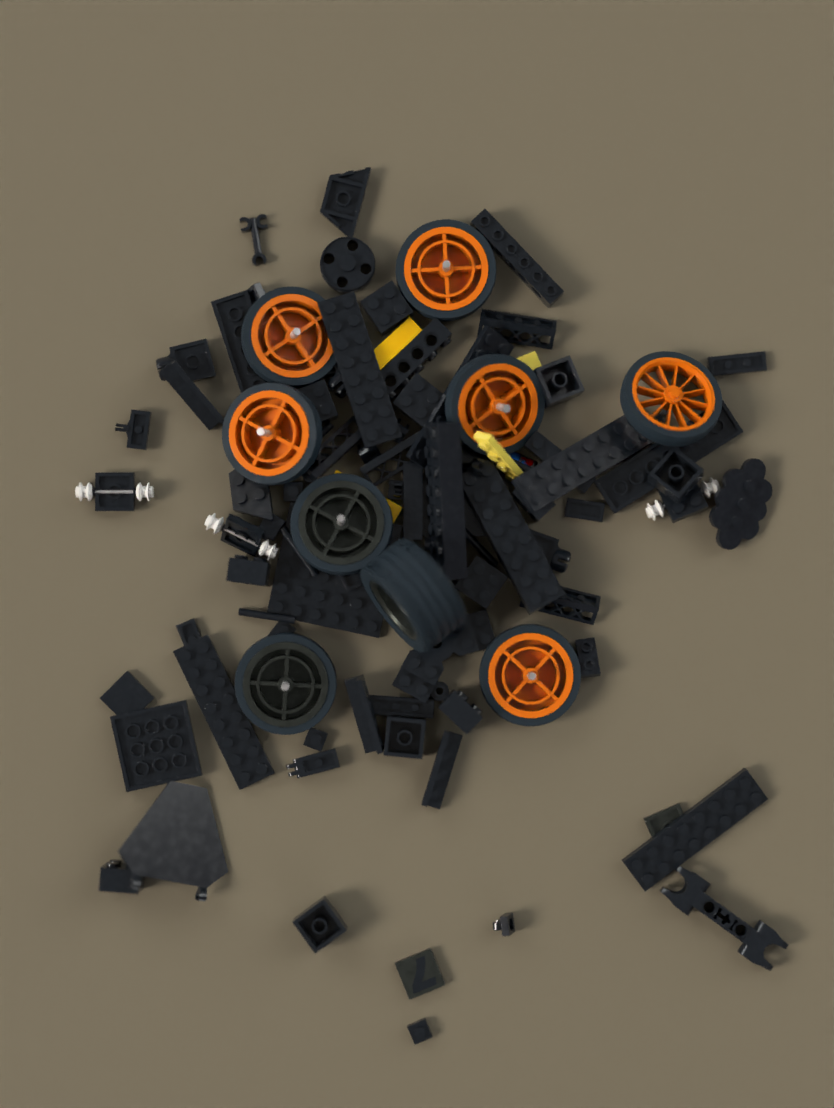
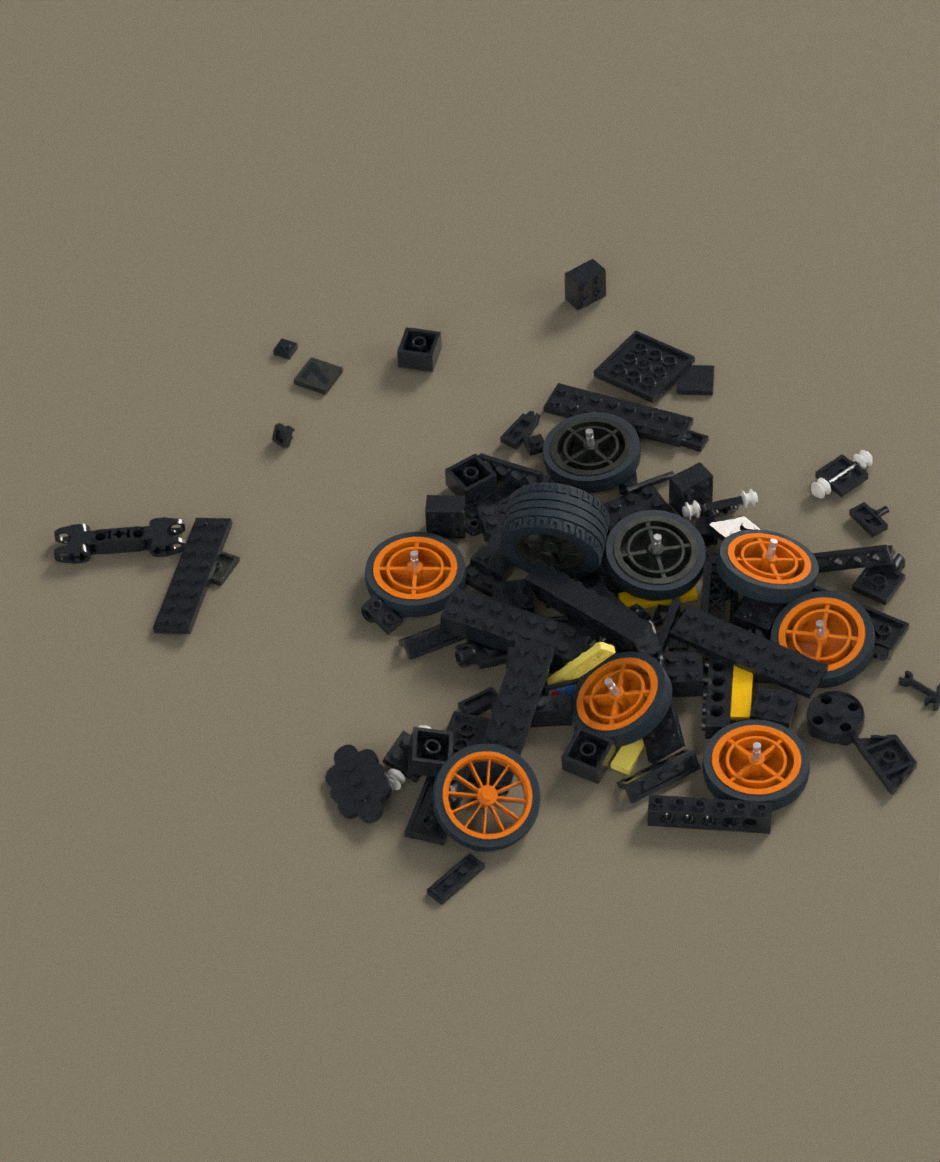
camera: 145 degrees right, 40 degrees down
(177, 841) = (570, 324): black flag -> none
(441, 769) = (420, 478): black fence -> none

